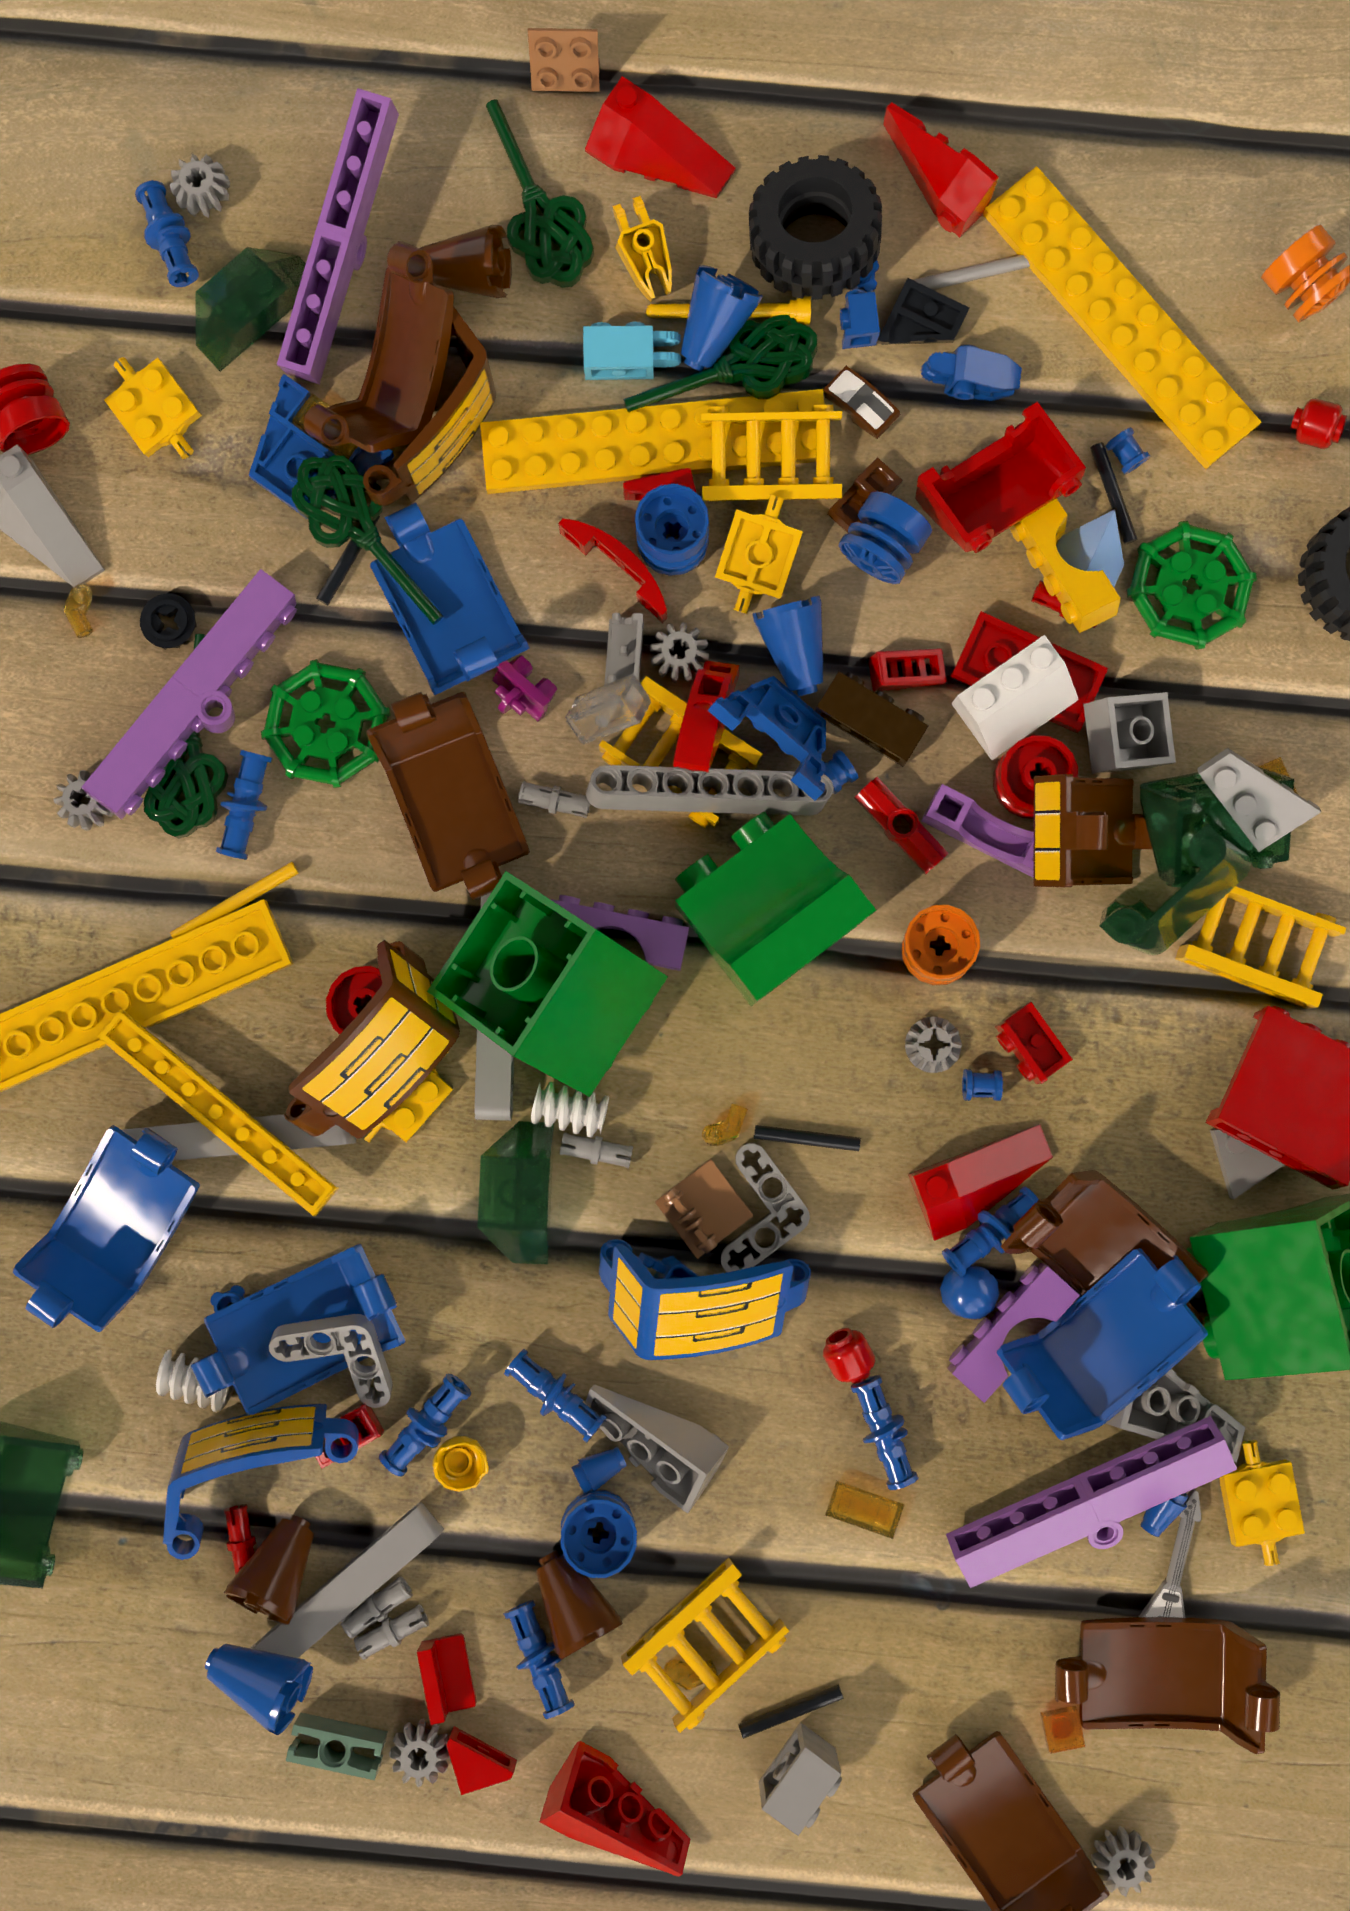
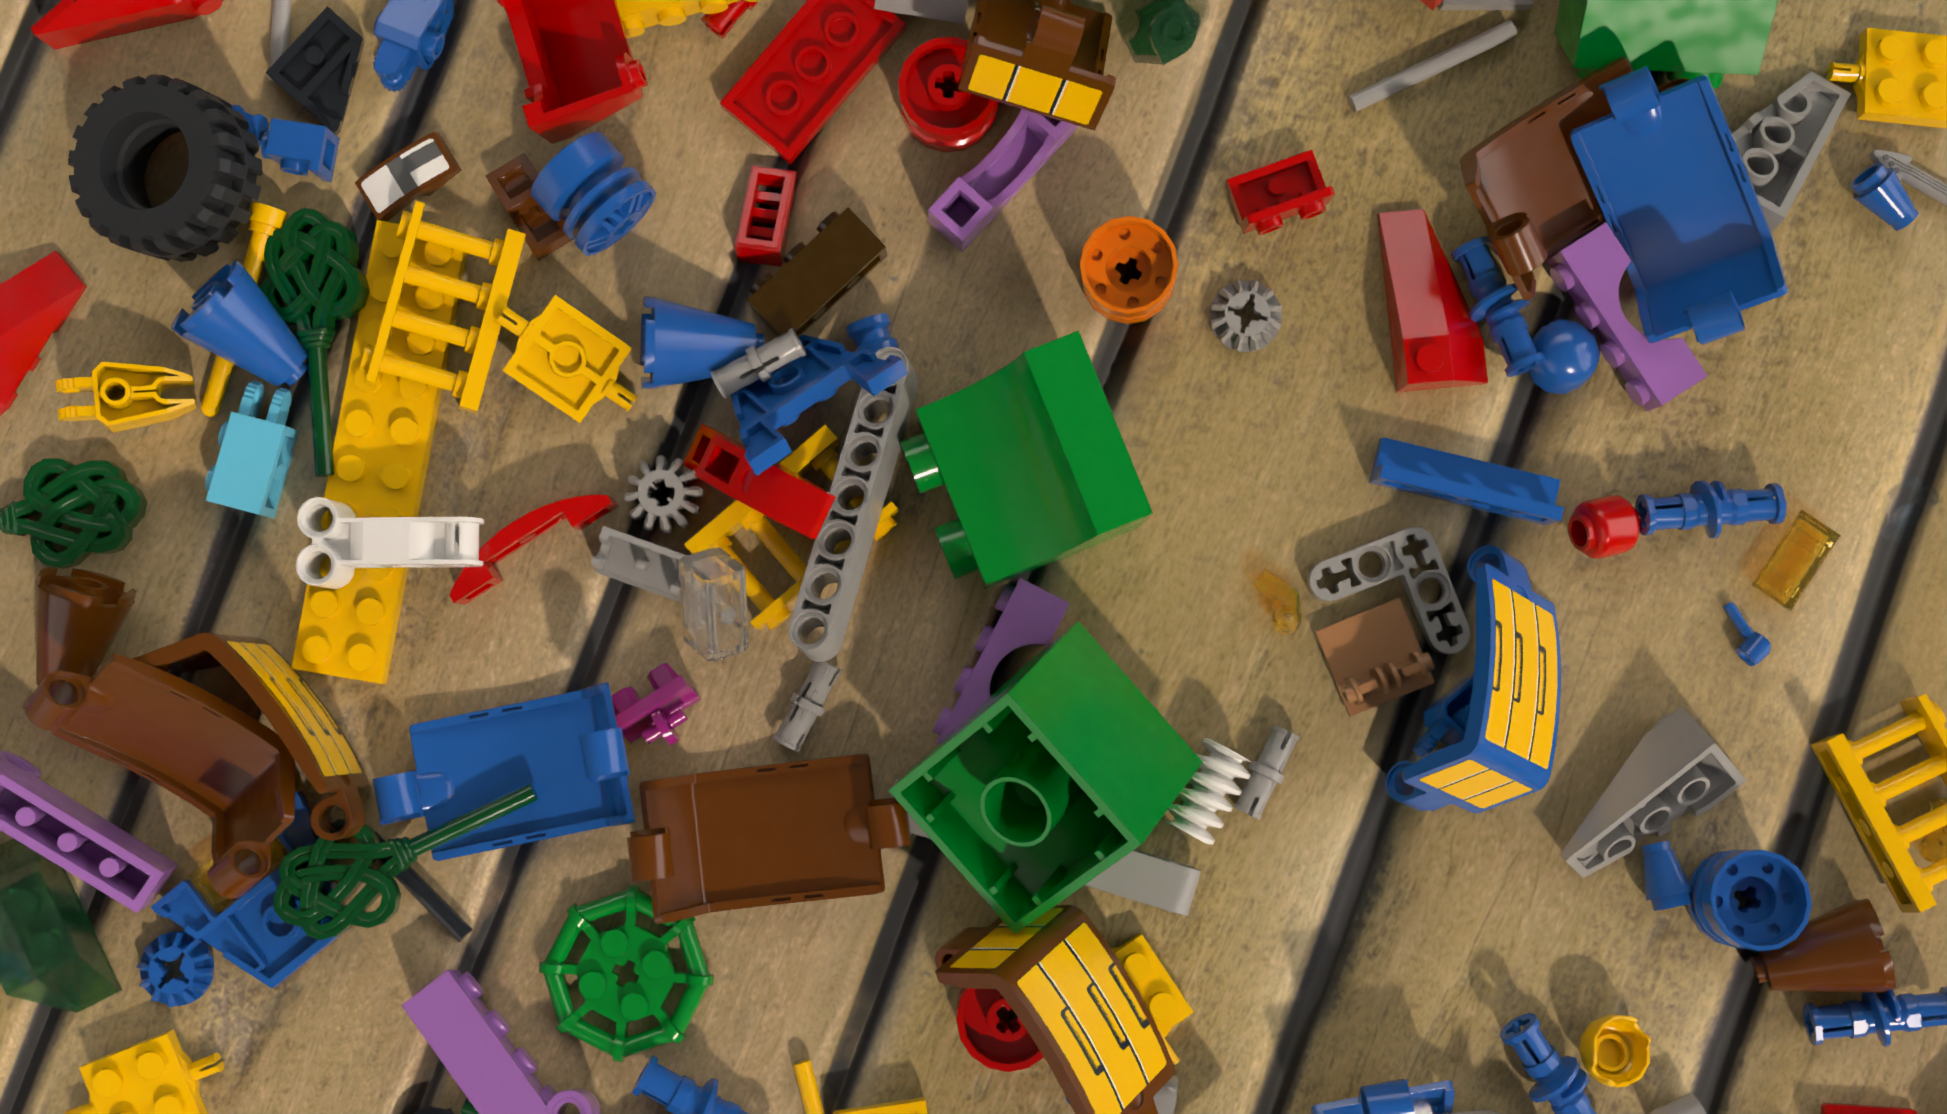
camera: 80 degrees left, 0 degrees up
(250, 418) = (196, 966): none -> blue gear
(517, 1192) = (1293, 885): clear green wedge -> none
(554, 1395) = (1562, 906): blue piece -> none
(586, 457) = (381, 542): none -> white piece
(638, 488) = (447, 447): red slope -> none
(672, 511) = (482, 448): blue wheel -> none
(791, 1494) = (1755, 646): none -> blue hand
(793, 692) = (758, 363): none -> light grey pin
(807, 1138) = (1320, 504): black bar -> none
(854, 1243) = (1466, 481): none -> blue fence
(918, 842) = (989, 263): red piece -> none
(982, 1085) = (1313, 269): blue bush -> none
(1017, 697) = (844, 87): white slope -> none
(1091, 1502) = (1862, 279): medium lavender hinge -> none
(1164, 1135) = (1432, 66): none -> light grey bar

